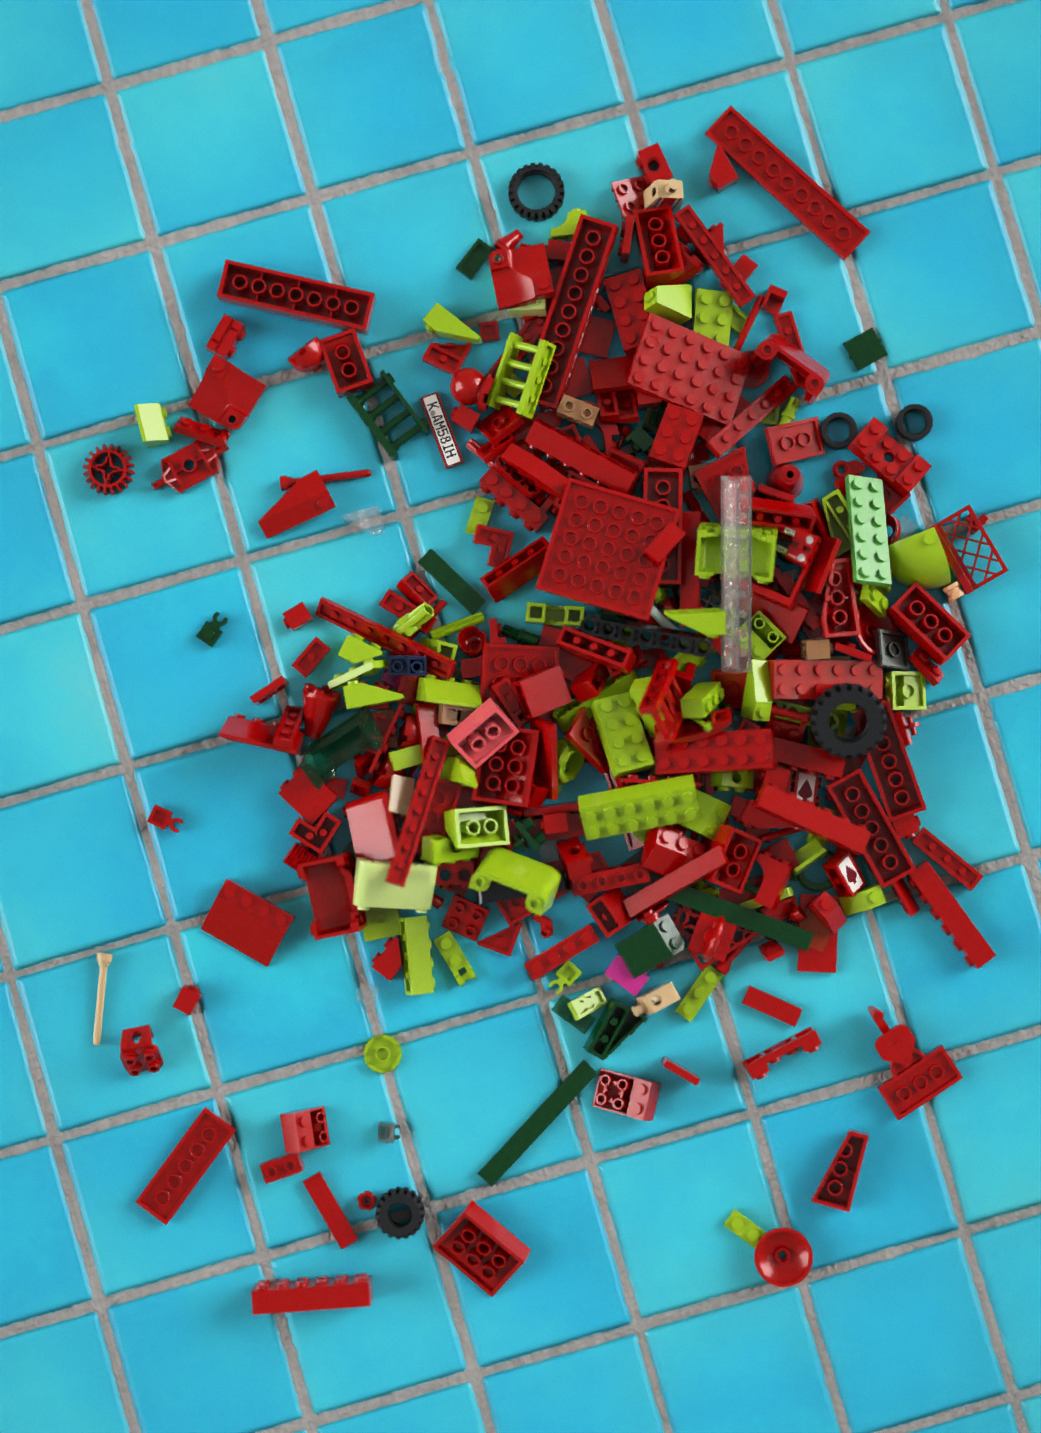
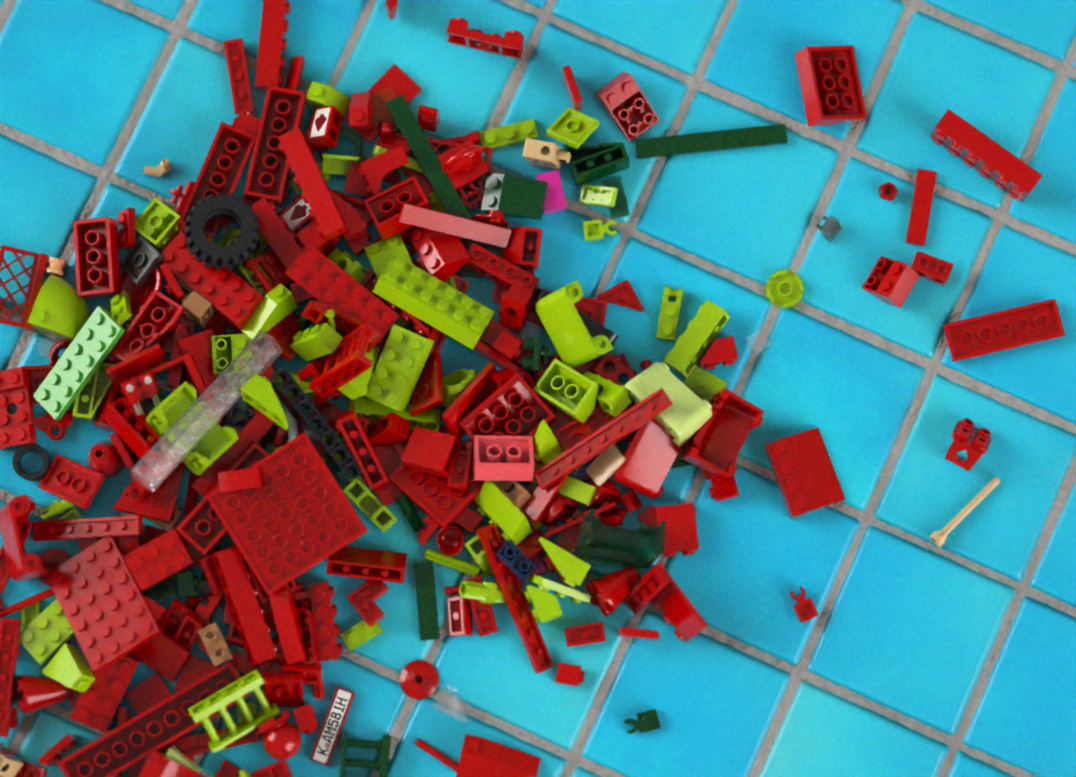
camera: 140 degrees left, 5 degrees down
(188, 999) = (899, 452): red brick -> none
(316, 837) = (694, 490): red brick -> none
(400, 1229) = (877, 147): black tyre -> none
(411, 528) = (423, 689): none -> red dish
(465, 917) = (635, 336): red hinge -> none
(546, 925) = (582, 275): red arm -> none
(561, 952) = (585, 249): red brick -> none
(652, 1039) = (572, 128): none -> lime plate
(658, 245) = (39, 722): red slope -> none
(772, 1006) = (463, 80): red tile -> none
(942, 732) = (159, 170): none -> tan arm

